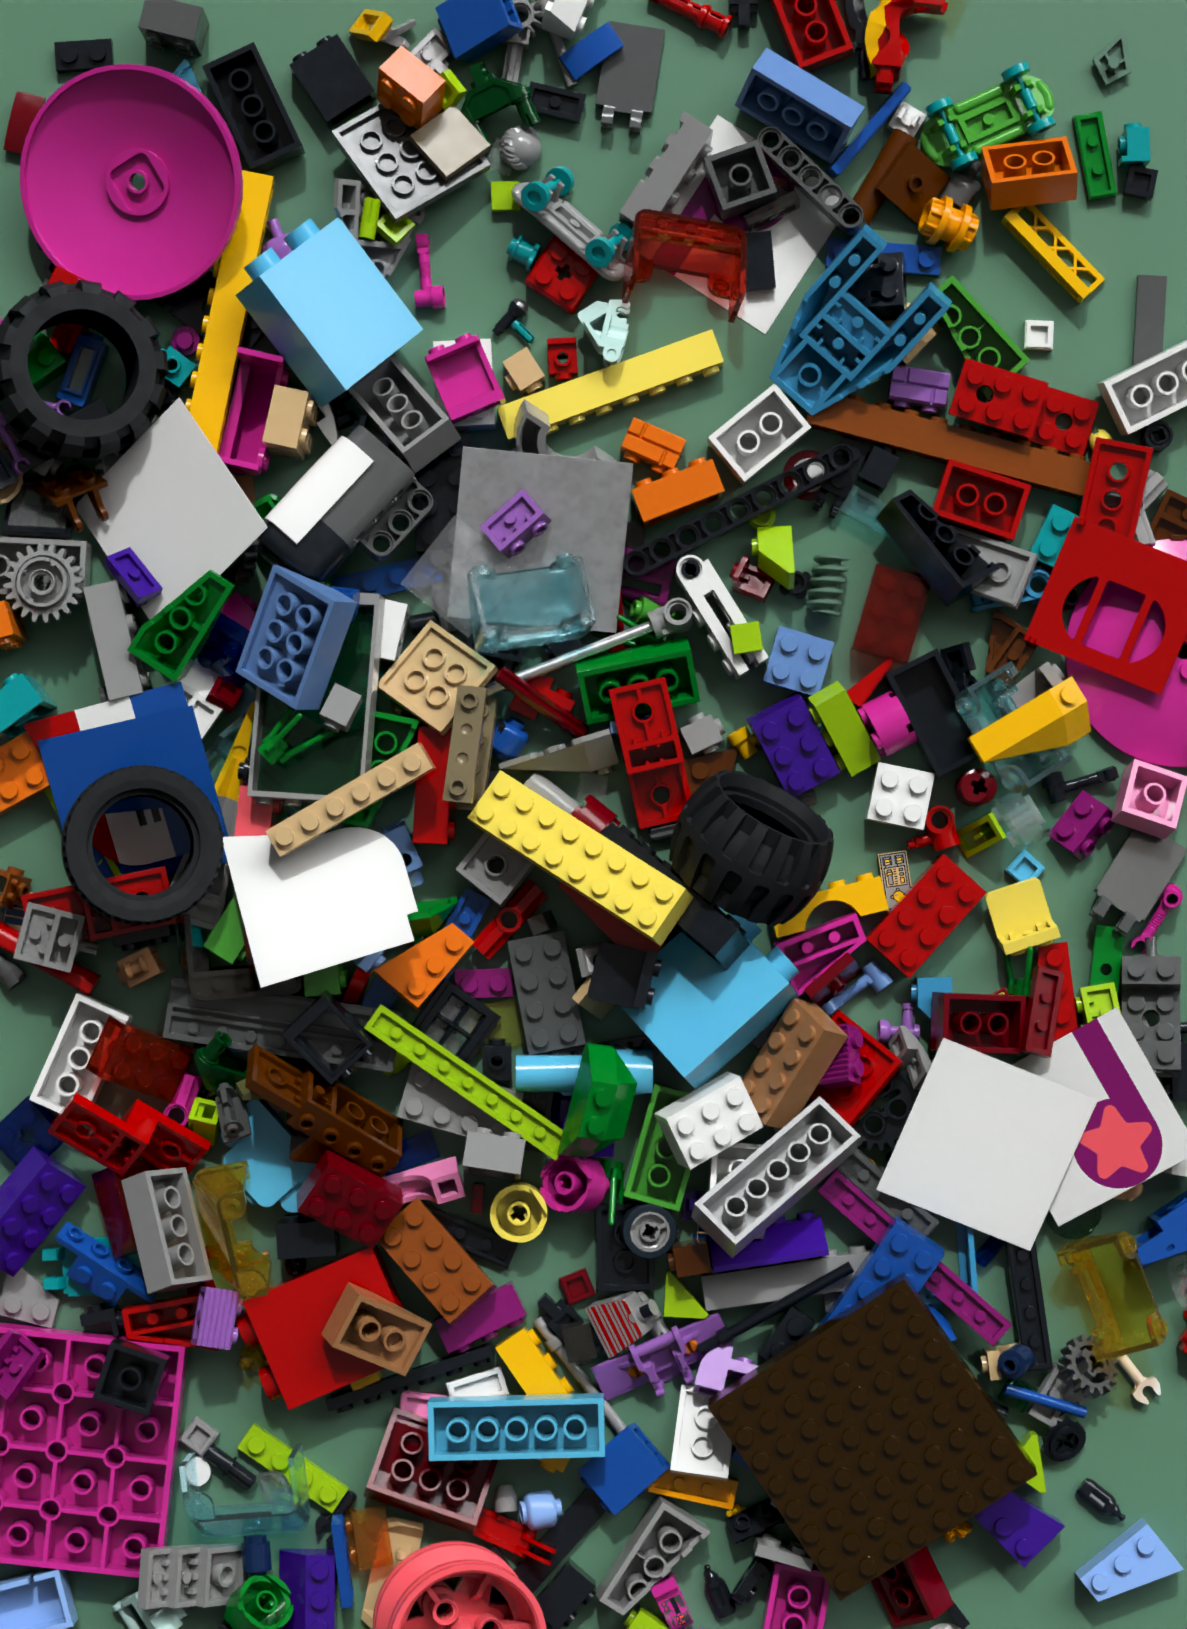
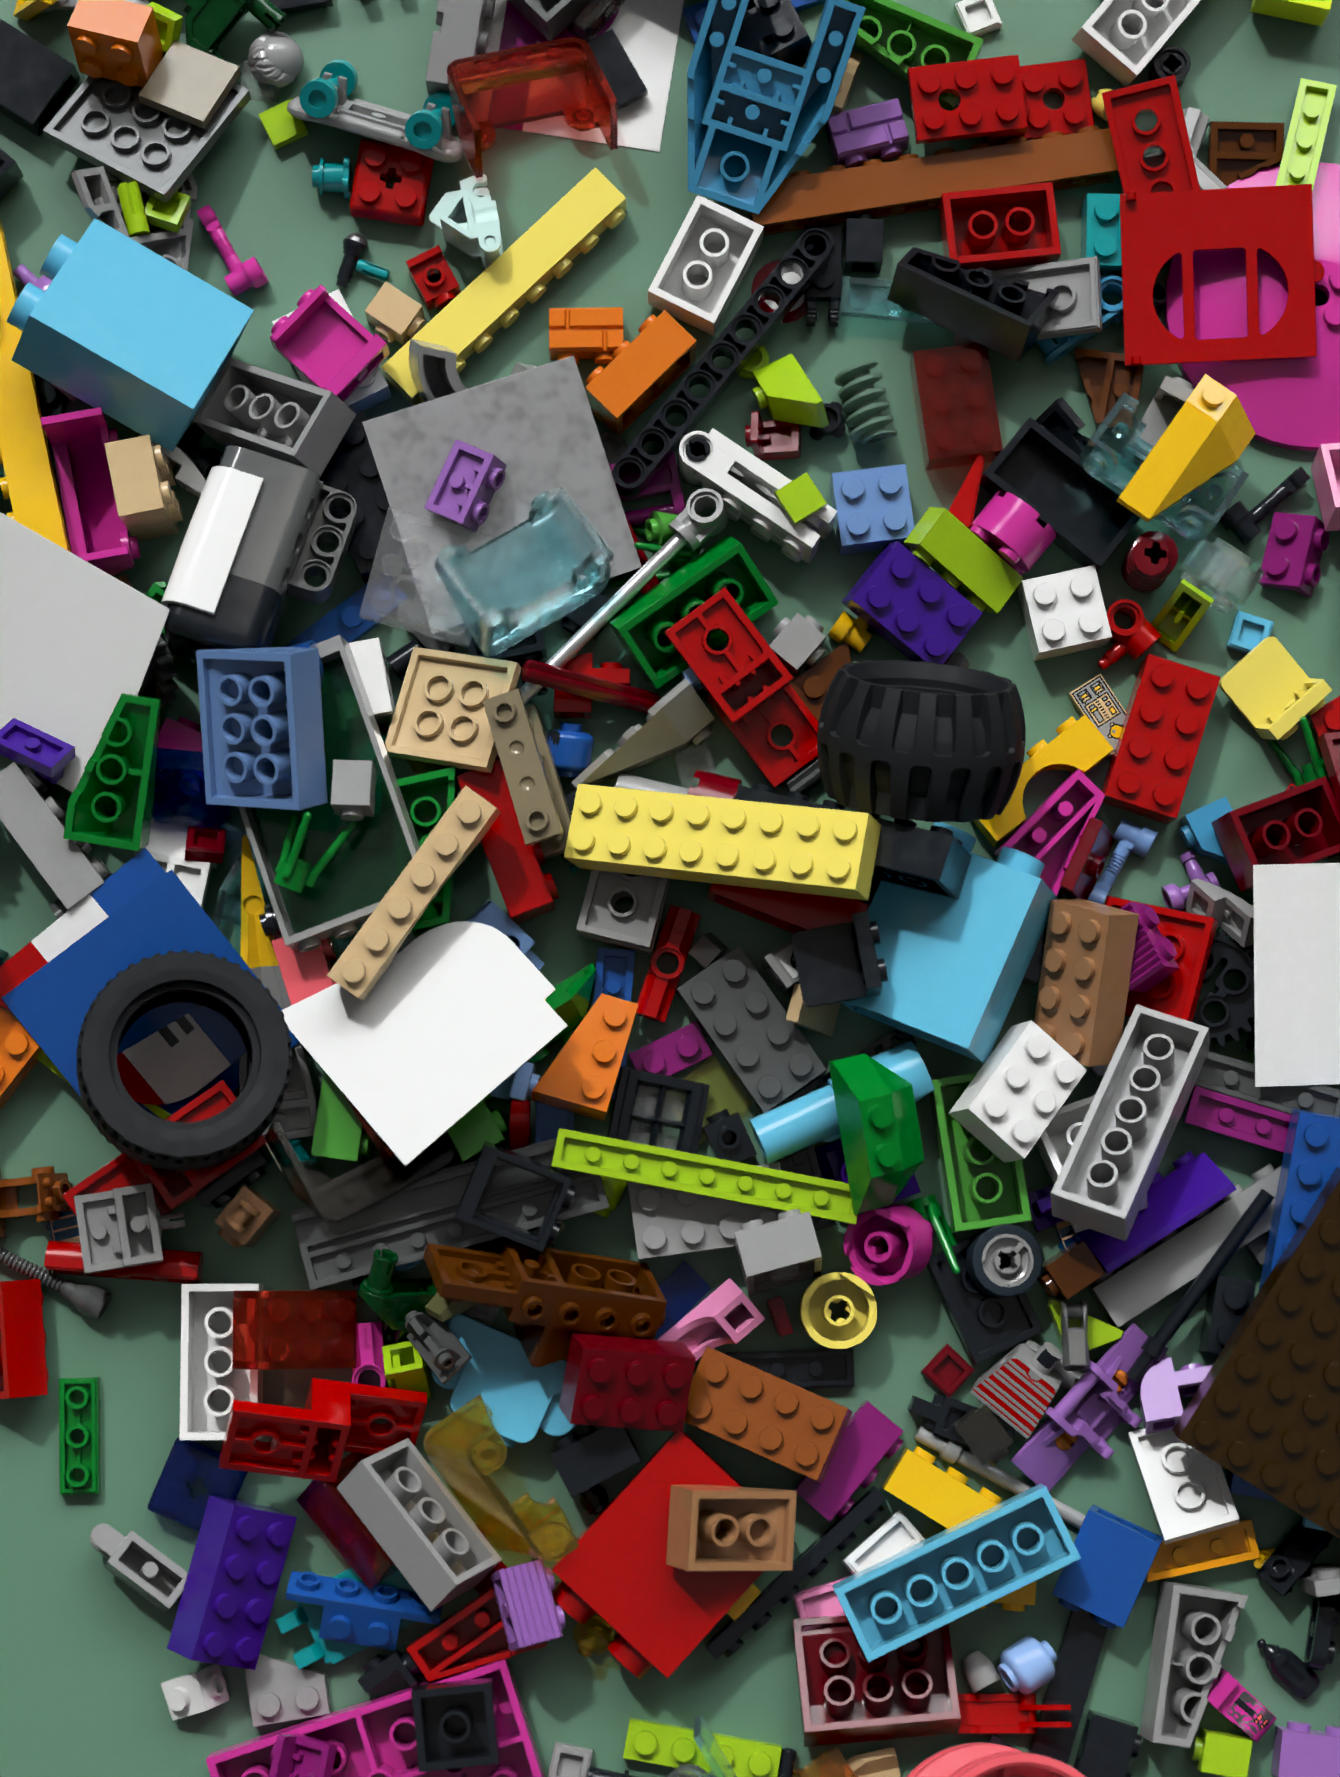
camera: 30 degrees left, 5 degrees down
(671, 1307) = (1075, 1339): none -> dark grey bar

